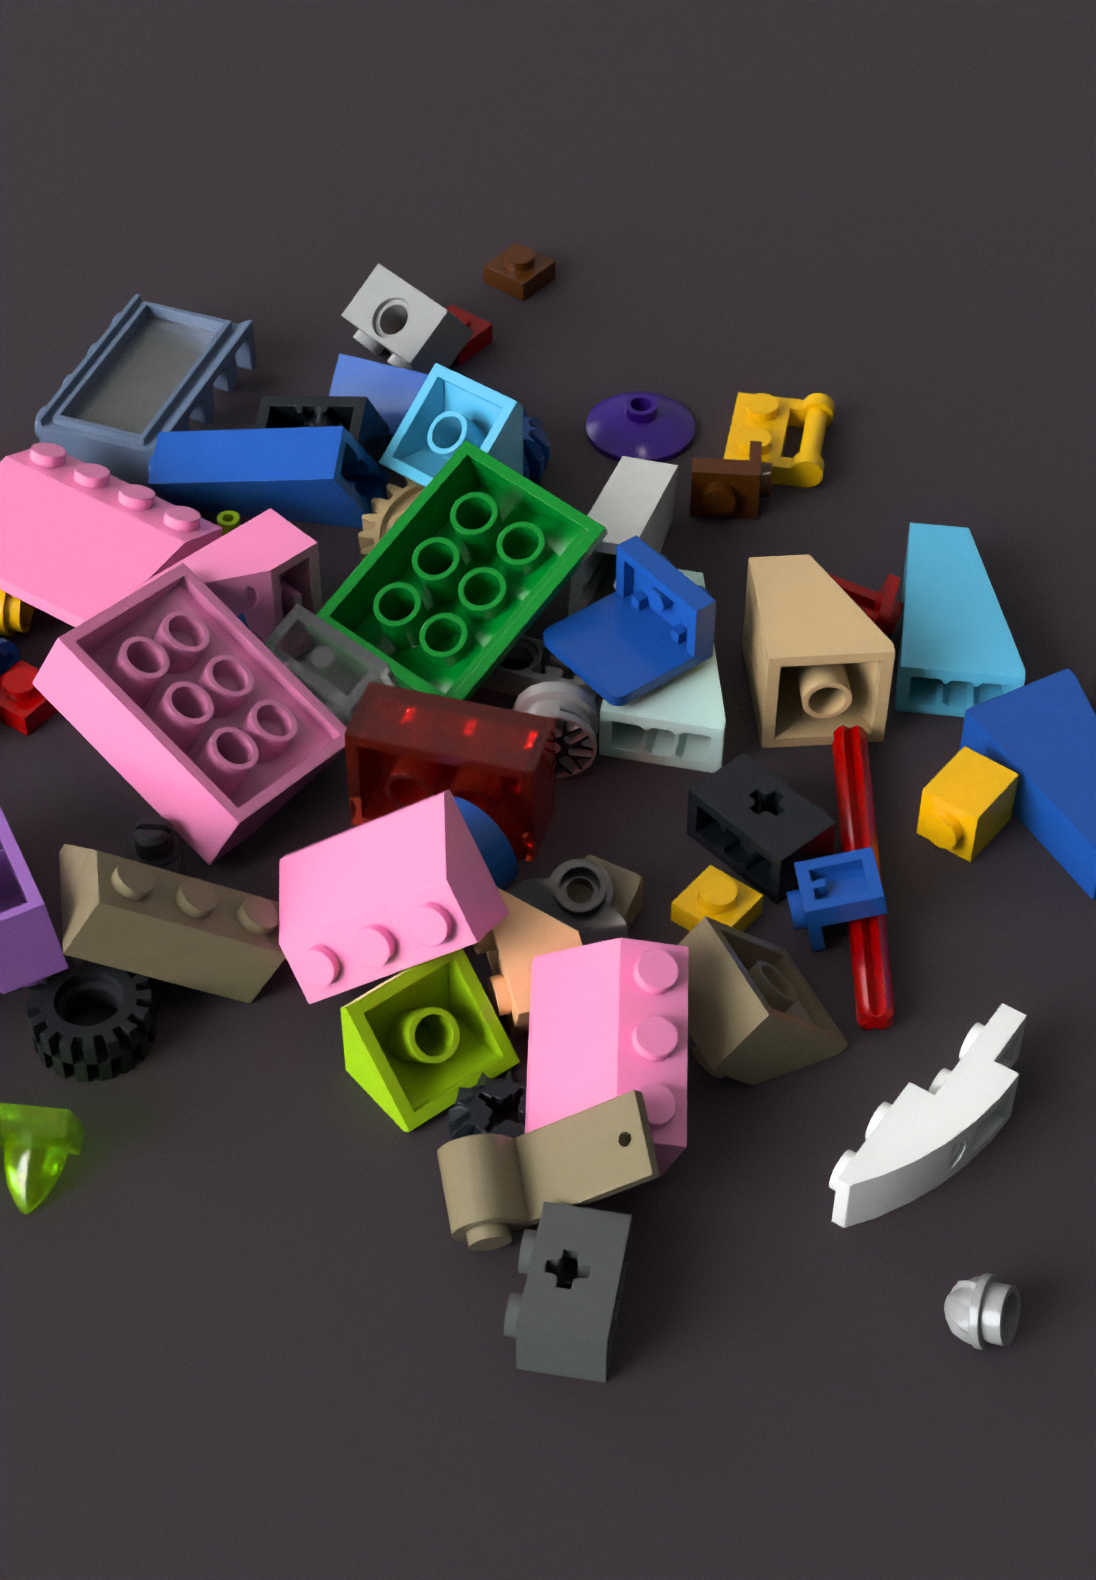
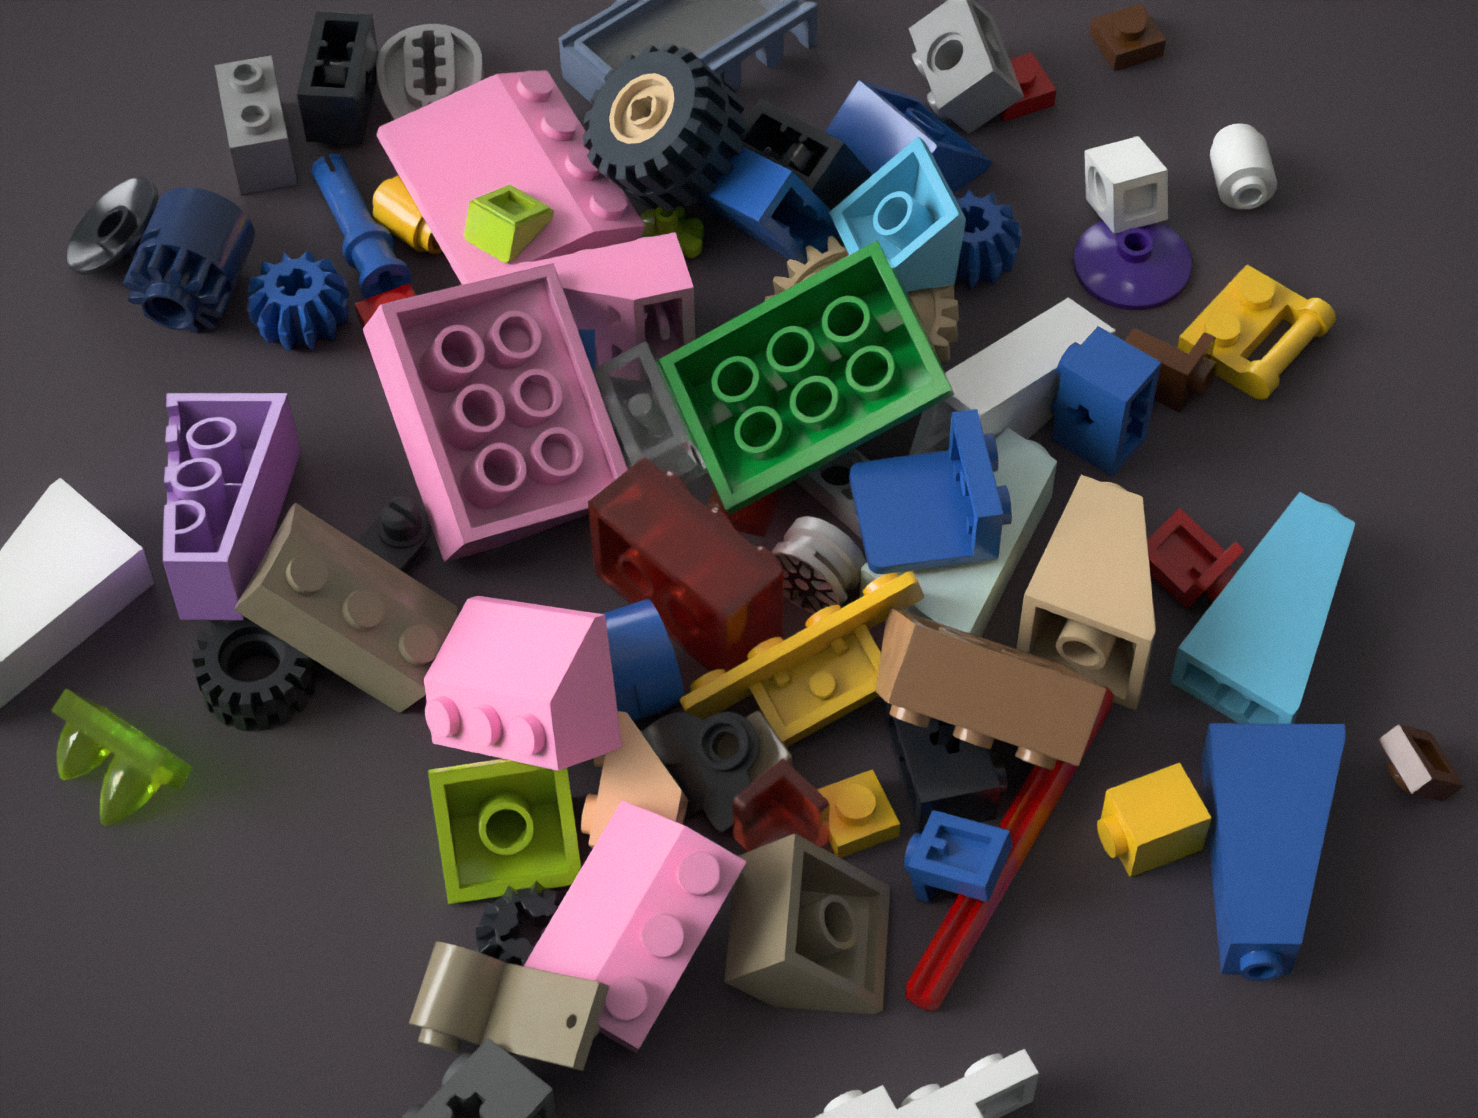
camera: 30 degrees right, 10 degrees up
(99, 562) = (505, 222): none -> lime slope
(201, 434) = (664, 127): none -> black wheel
(604, 366) = (1126, 184): none -> white brick
(618, 802) = (816, 671): none -> yellow bracket
(665, 910) = (779, 806): none -> clear red panel
(684, 326) = (1242, 167): none -> white brick
(707, 514) = (1104, 400): none -> blue brick
(781, 743) = (986, 690): none -> medium nougat slope

